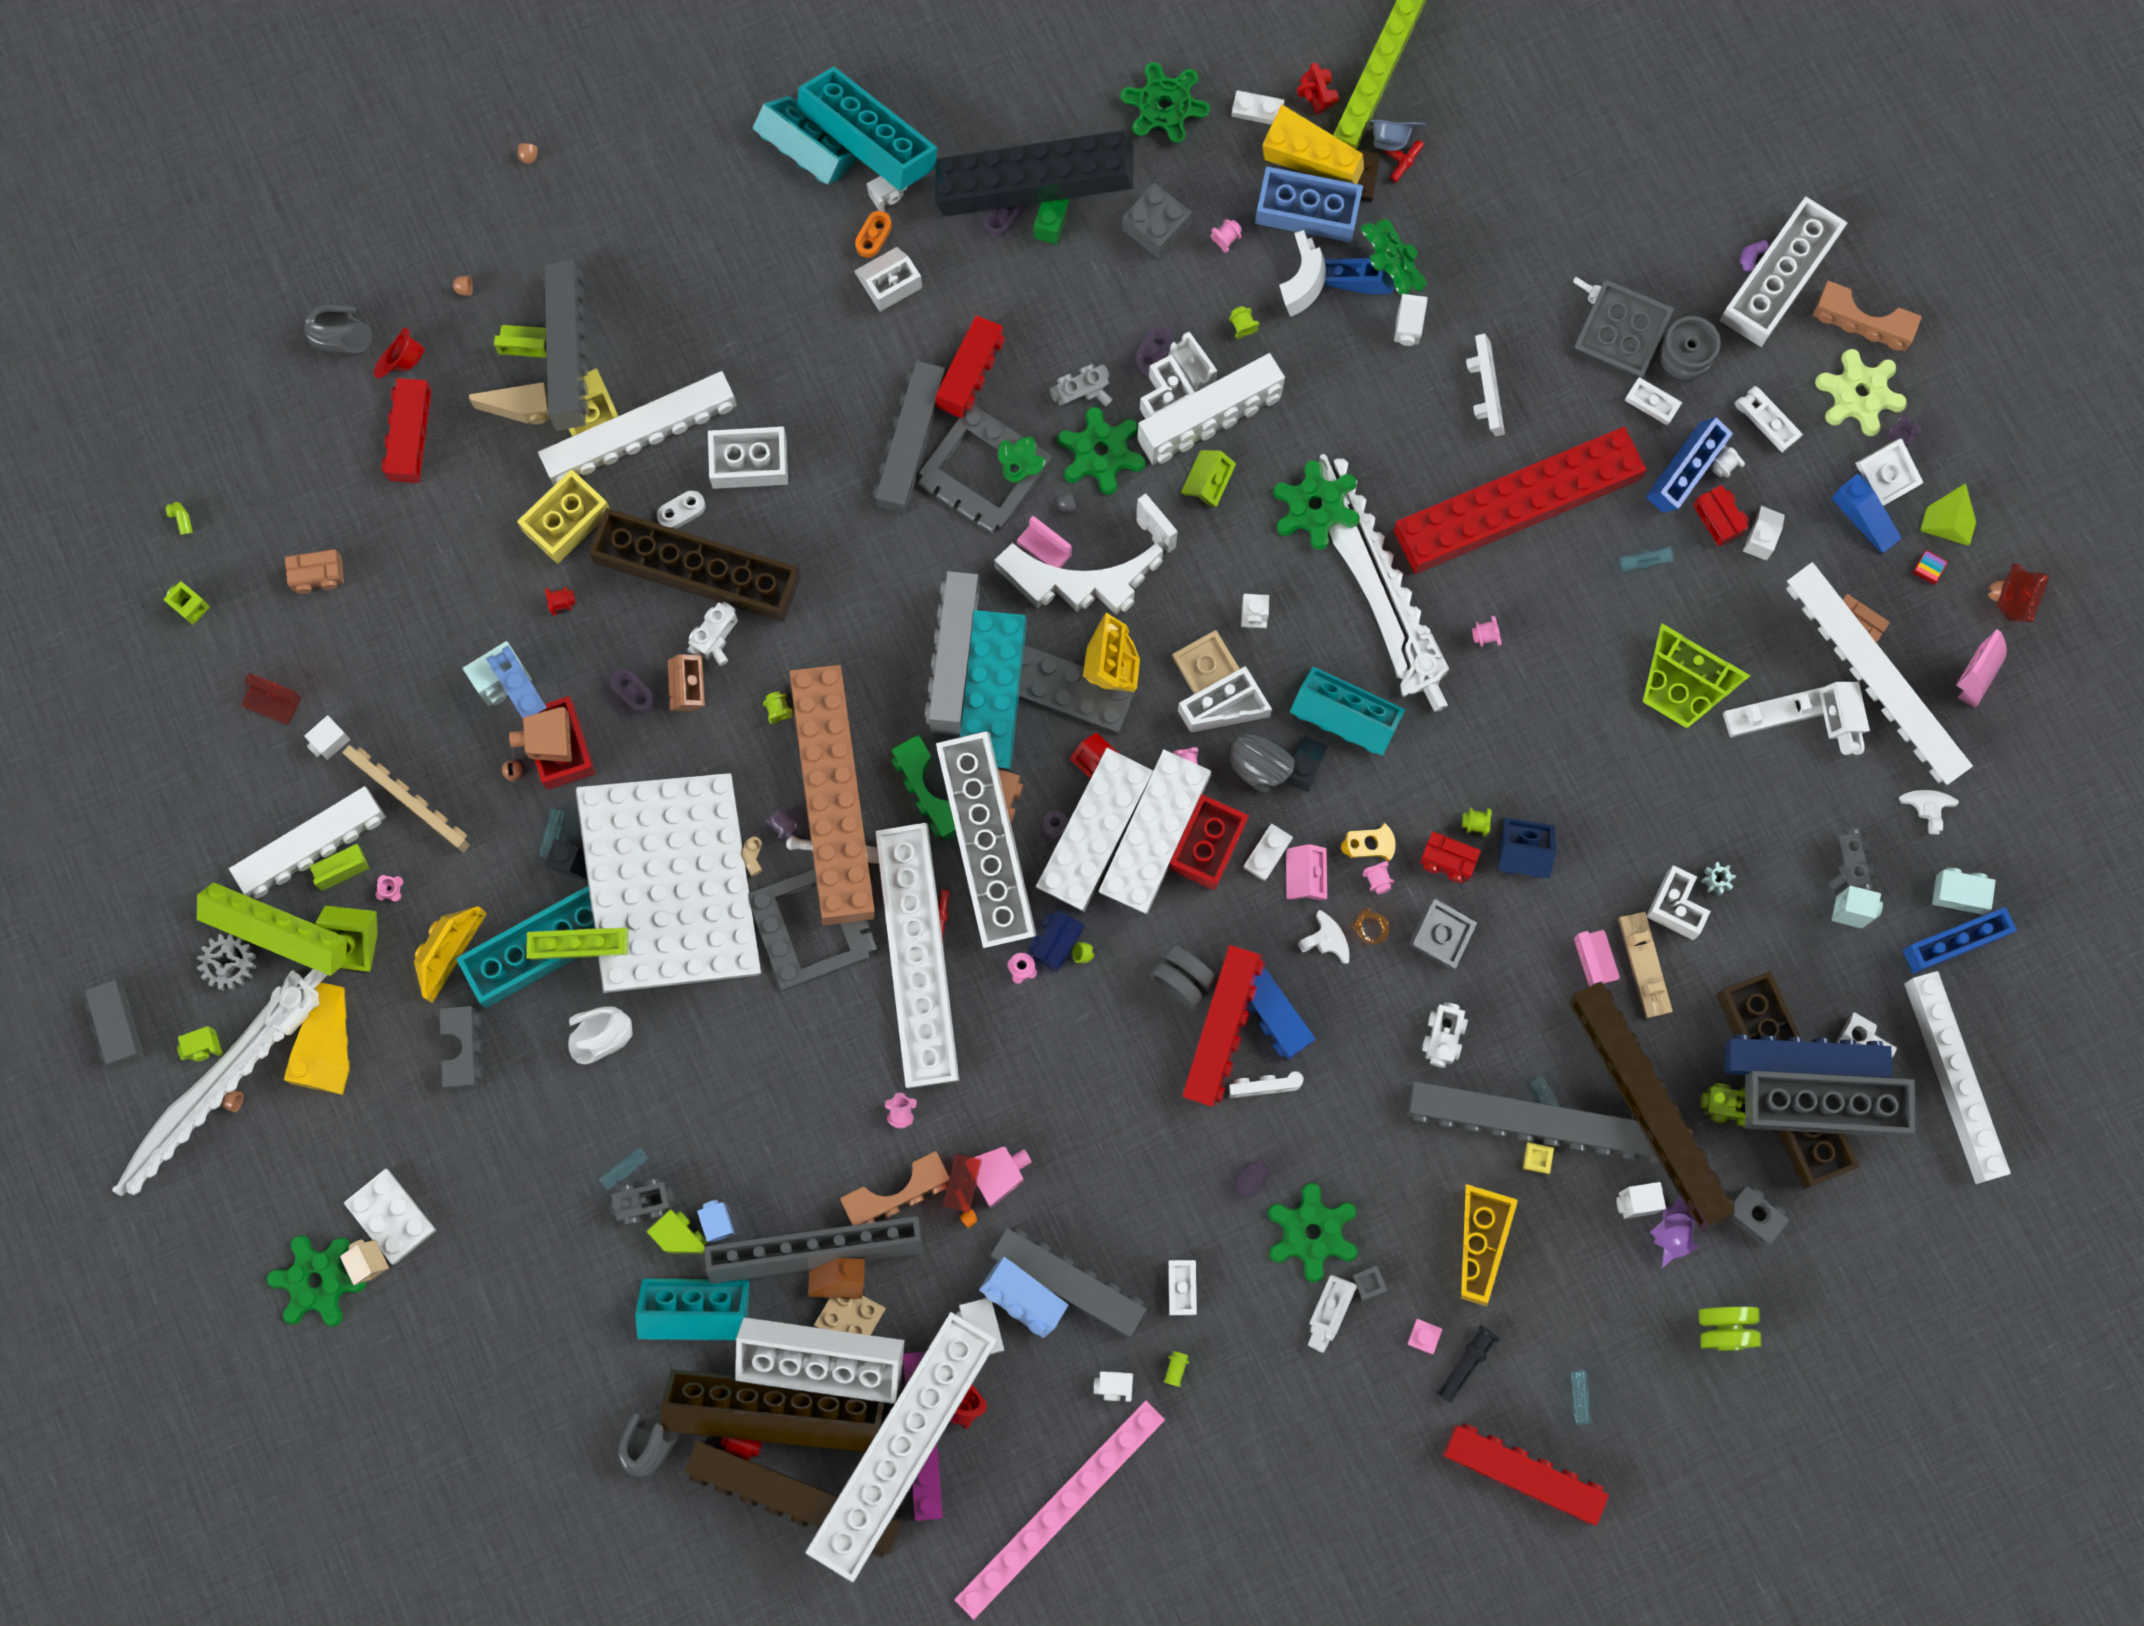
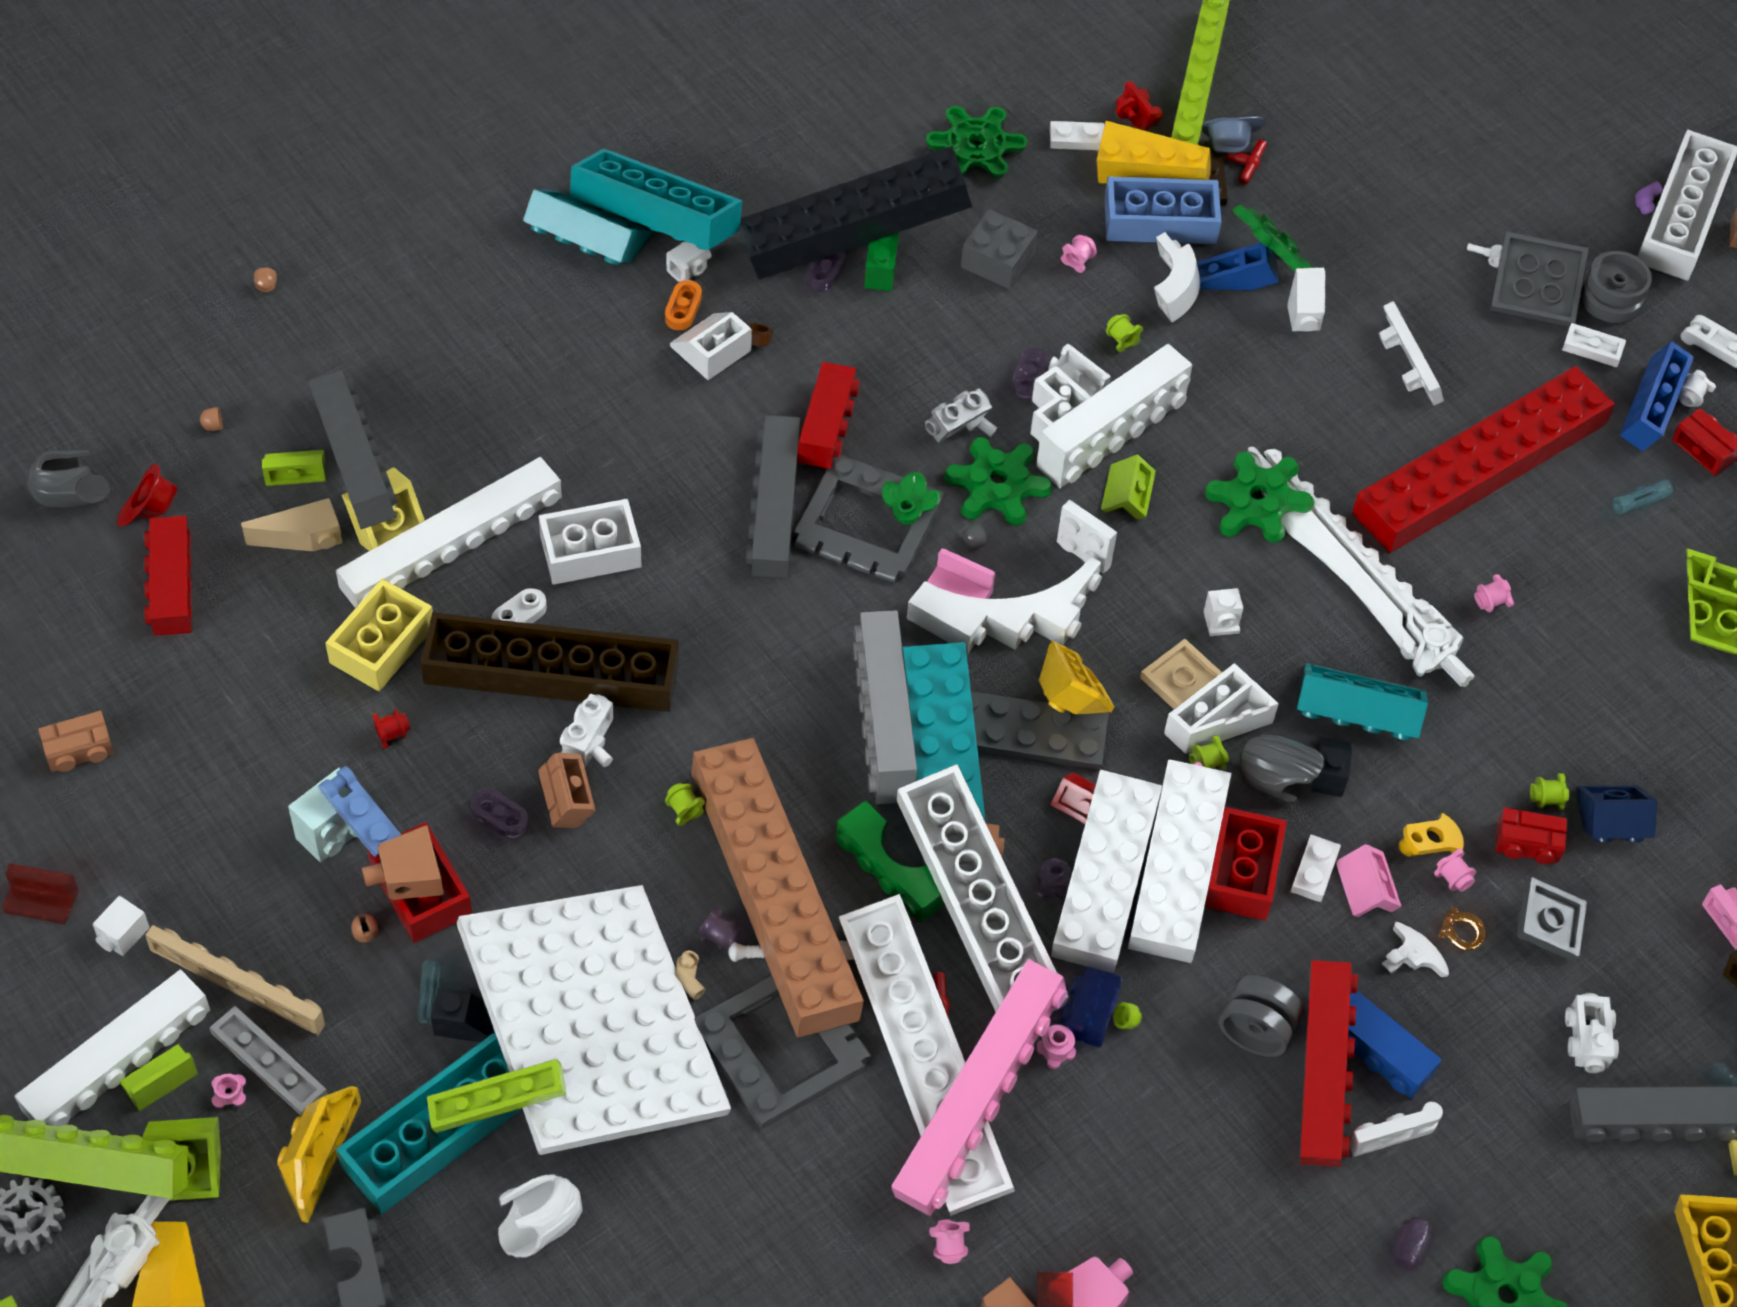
camera: 15 degrees left, 20 degrees down
(421, 870) = (267, 1060): none -> light grey plate
(930, 274) = (760, 334): none -> reddish brown tile
(947, 998) = (979, 1088): none -> bright pink brick
(1207, 740) = (1210, 754): none -> lime brick

